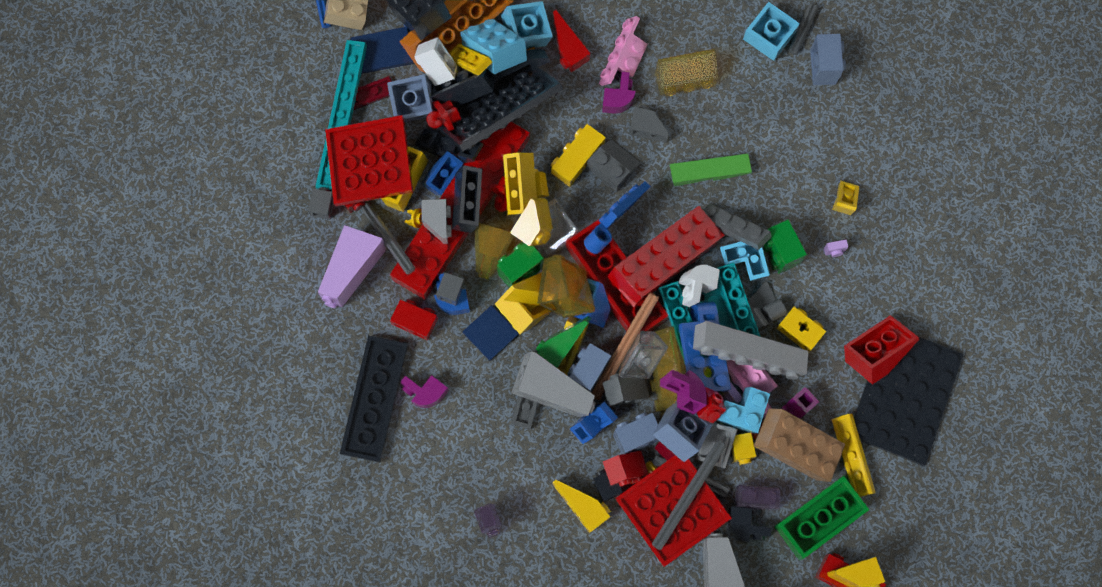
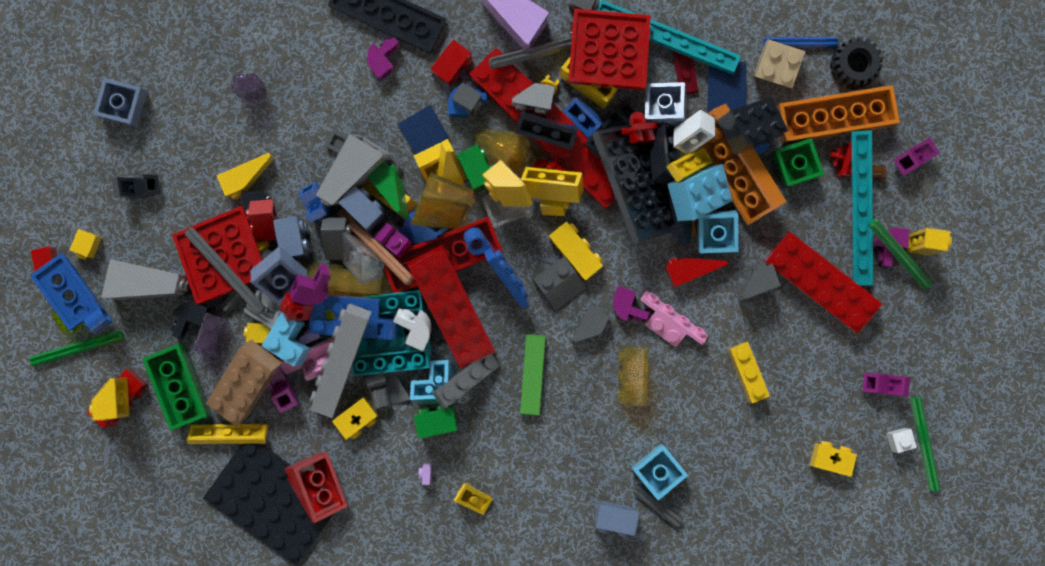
camera: 105 degrees right, 10 degrees up
(613, 330) = (392, 240): none -> magenta brick

